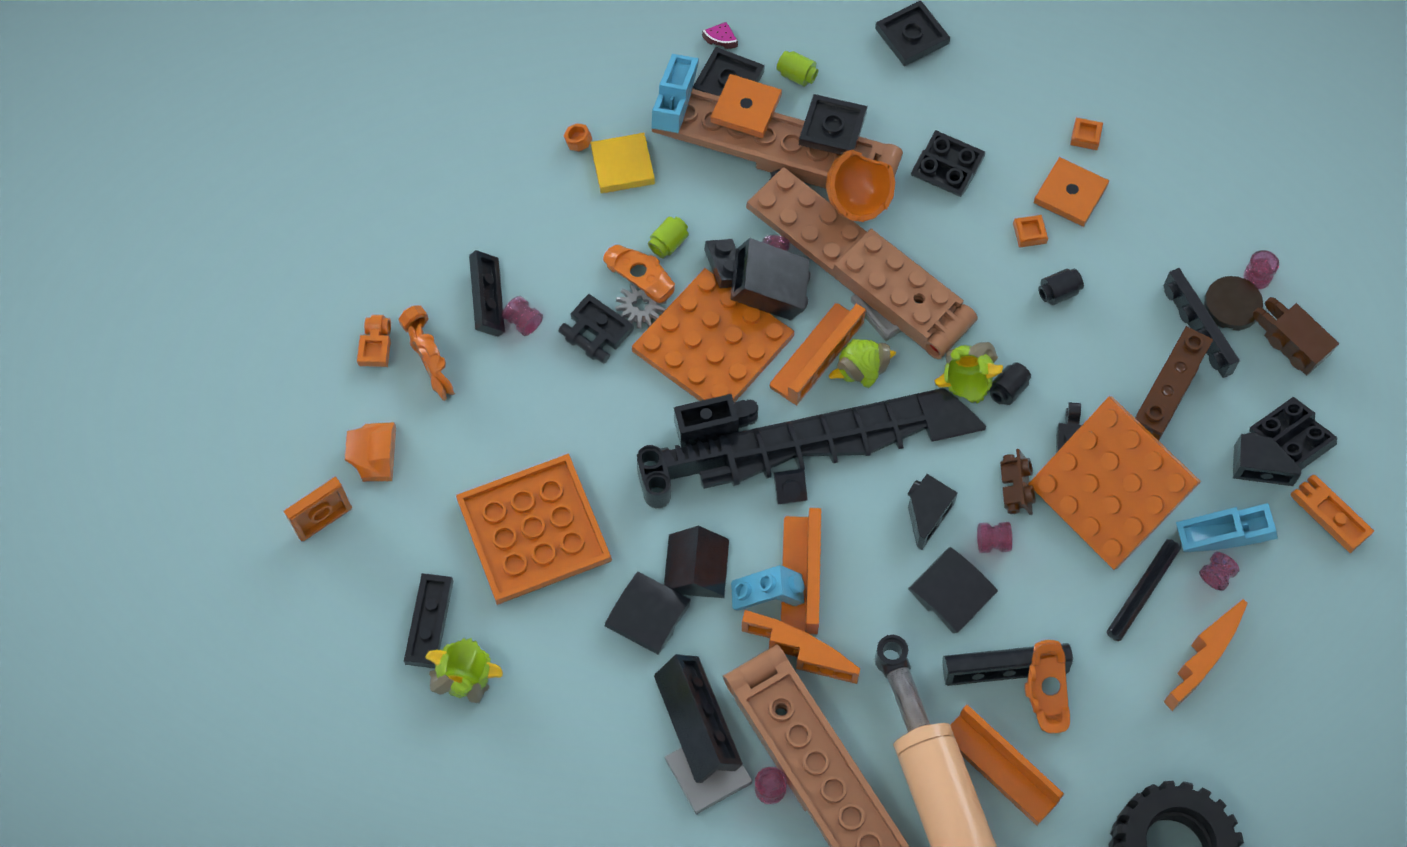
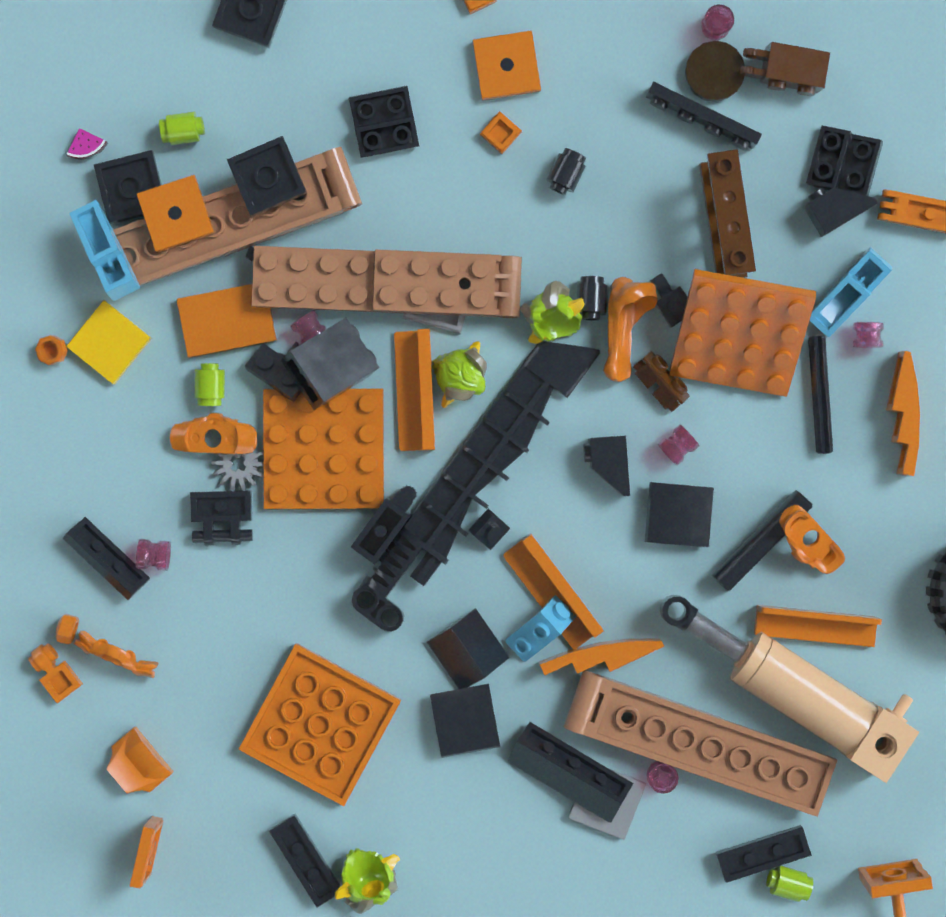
camera: 45 degrees left, 25 degrees up
(716, 207) = (224, 321): none -> orange tile
(860, 186) = (340, 225): orange cylinder -> none
(1033, 408) = (625, 307): none -> orange hair

